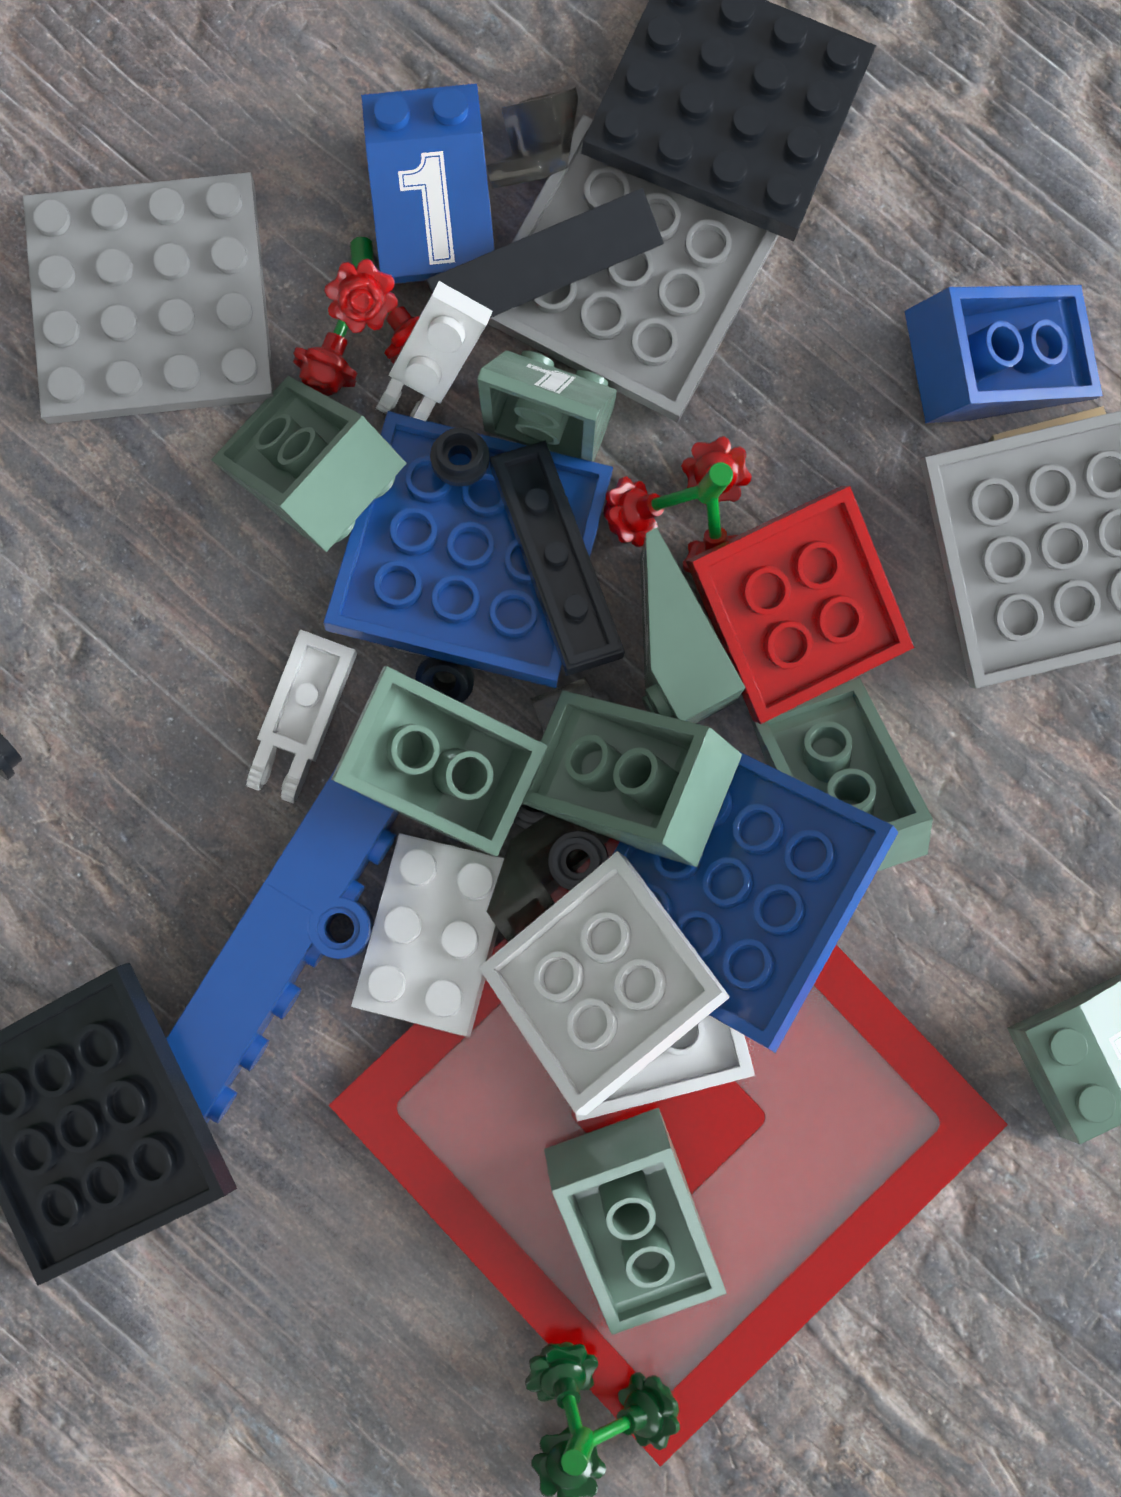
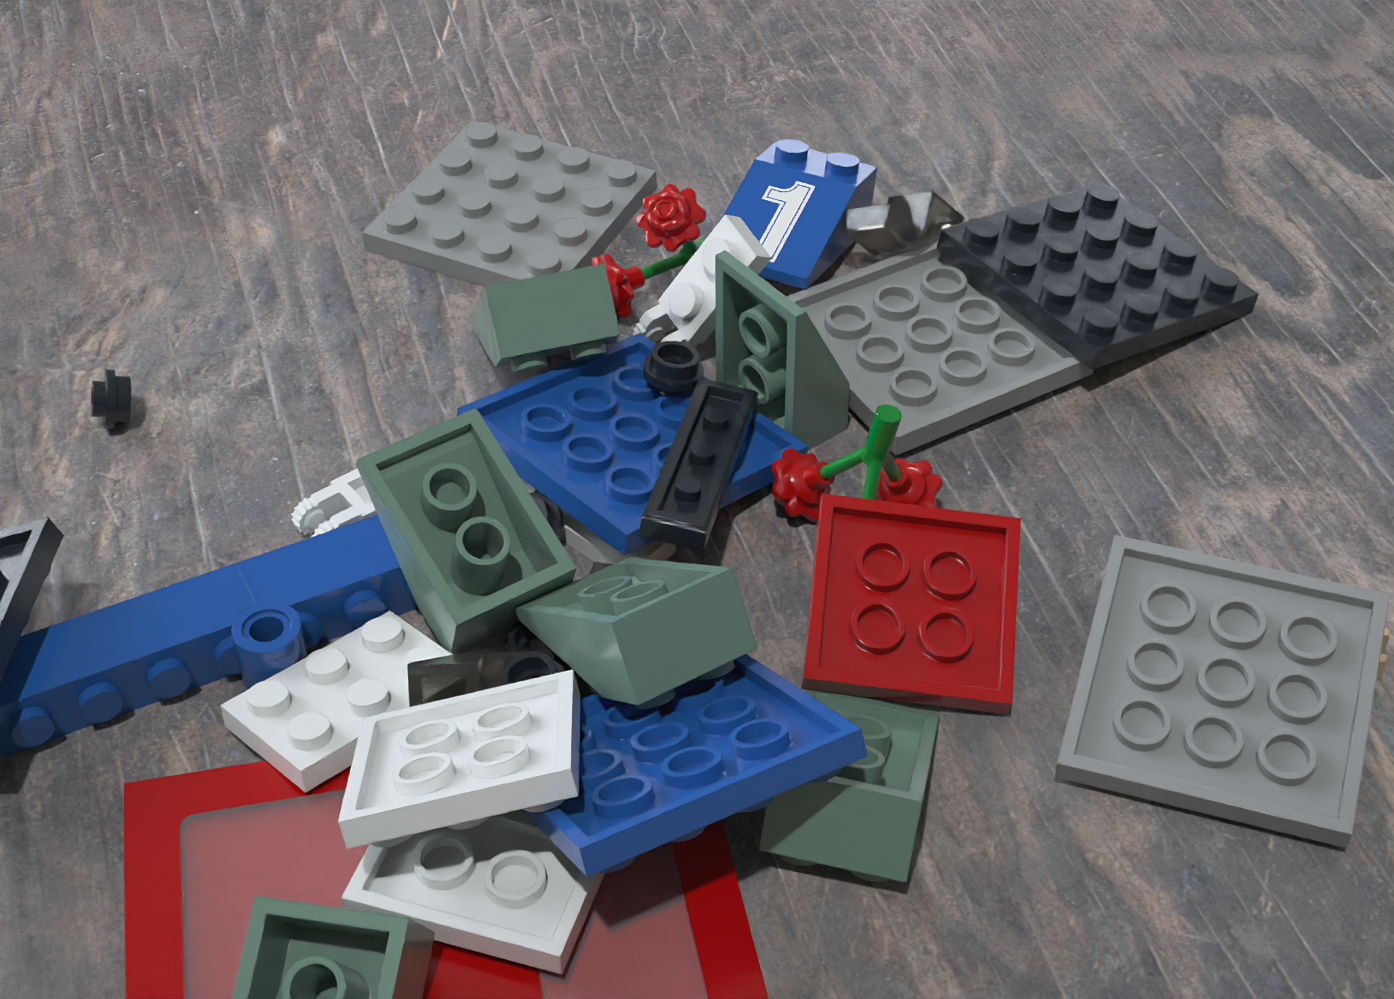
camera: 35 degrees right, 40 degrees down
(557, 255) = (871, 287): black tile -> none
(683, 659) = (764, 552): sand green slope -> none
(1001, 351) = (1251, 508): blue slope -> none

